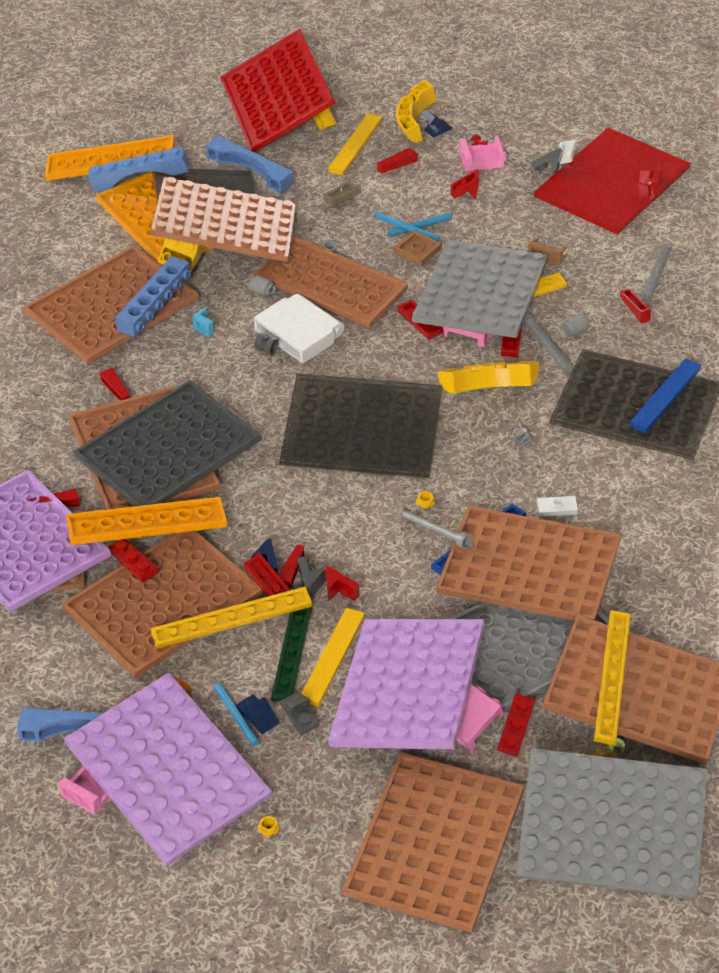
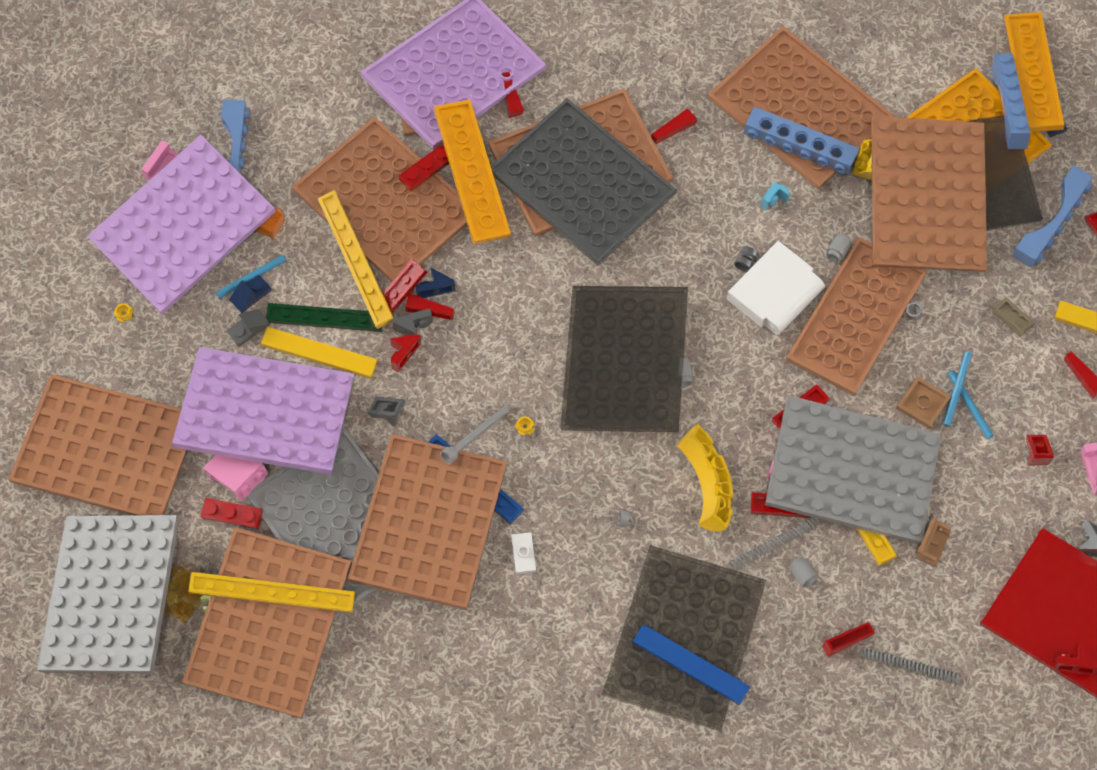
camera: 85 degrees right, 20 degrees up
(405, 593) = (387, 408): none -> dark grey slope

